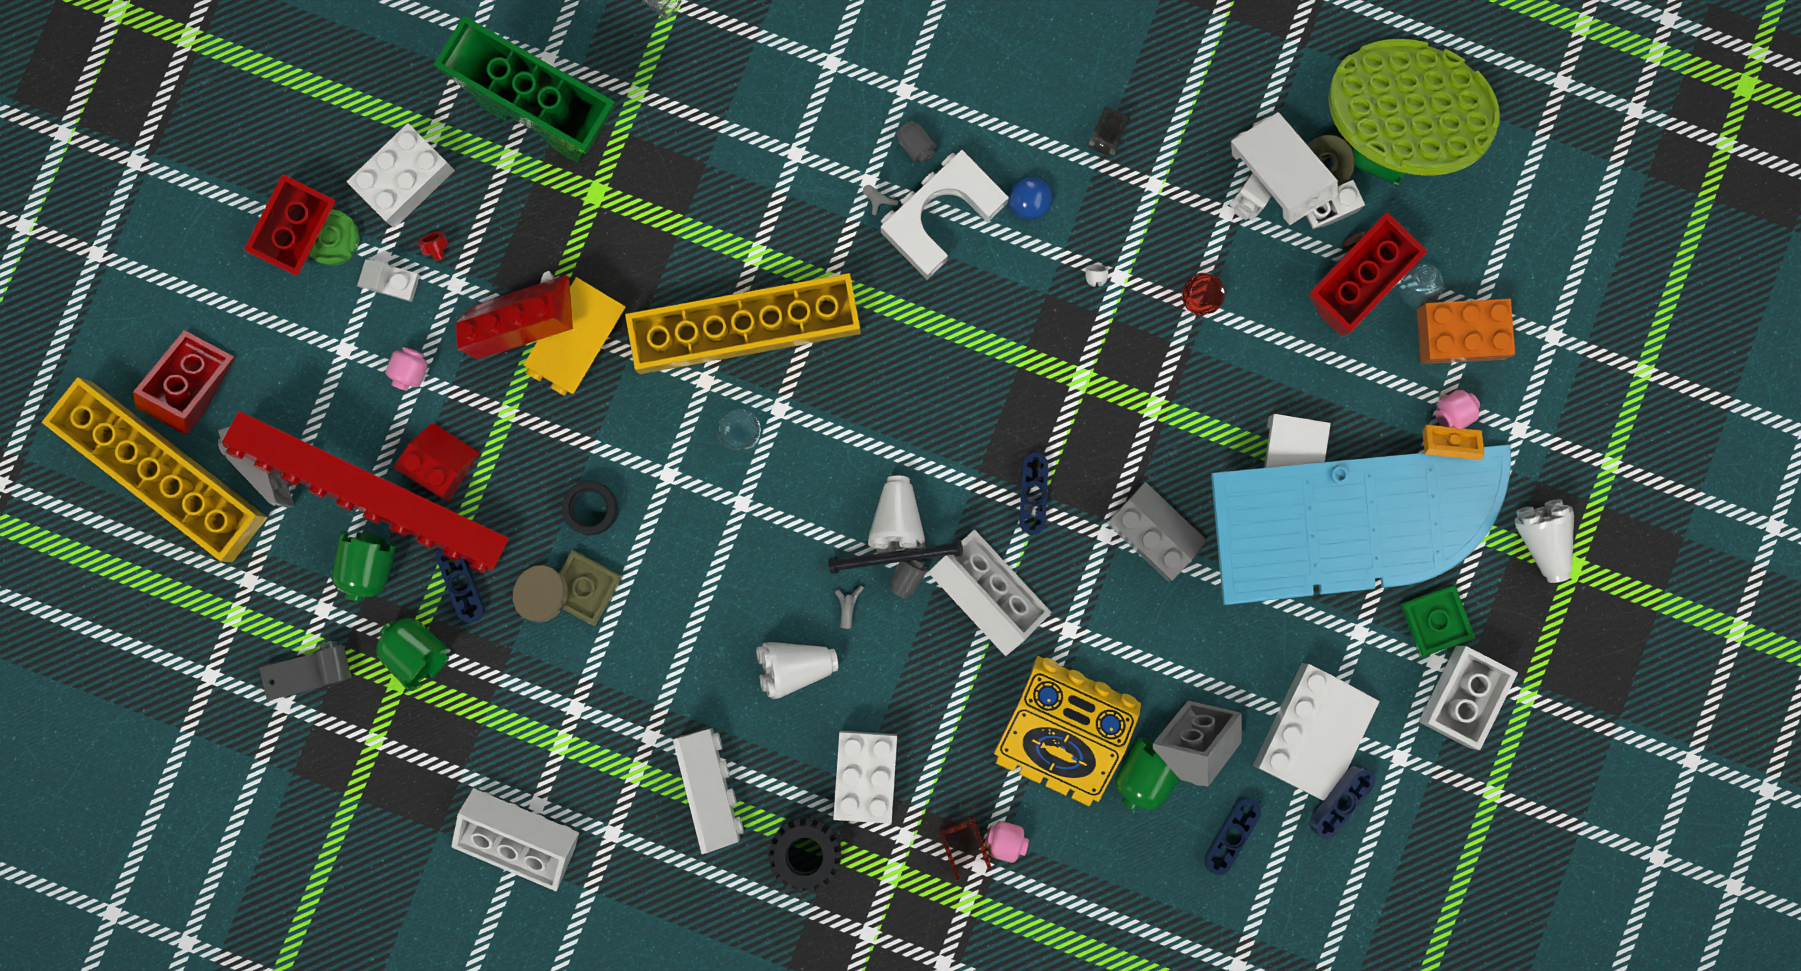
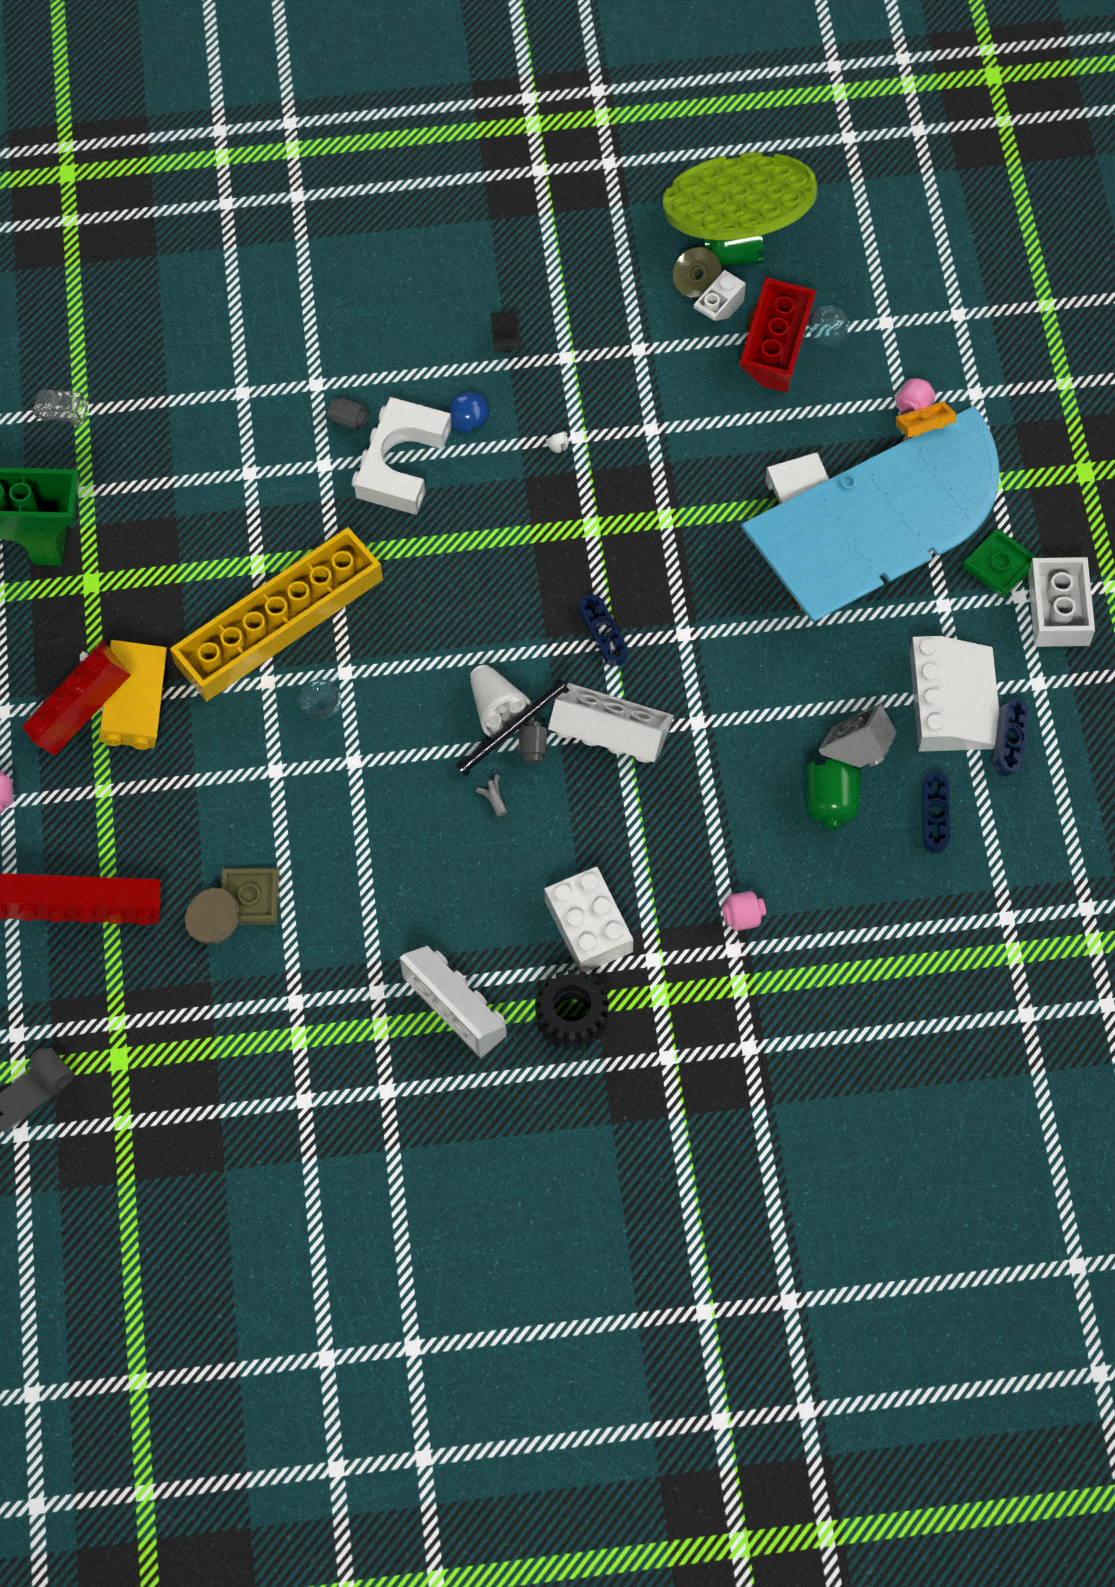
camera: 25 degrees left, 20 degrees down
(361, 565) = (36, 966): green cylinder -> none
(411, 652) = (120, 1018): green cylinder -> none
(437, 461) = (60, 853): red slope -> none
(461, 605) = (132, 934): dark blue beam -> none
(514, 839) = (299, 1136): white slope -> none
(568, 508) = (219, 806): black tyre -> none
(793, 666) = (471, 862): white cone -> none
(877, 198) = (338, 469): light grey bar -> none
(958, 826) = (715, 918): clear red piece -> none
(1068, 731) = (744, 800): hinge -> none
(1157, 532) = (724, 610): light grey slope -> none
(1203, 293) = (654, 411): clear red hair -> none
(1250, 199) = (651, 324): white slope -> none
(1285, 167) = (665, 284): white panel -> none
(1465, 331) = (884, 339): orange brick -> none
(1549, 537) = (1049, 453): white cone -> none

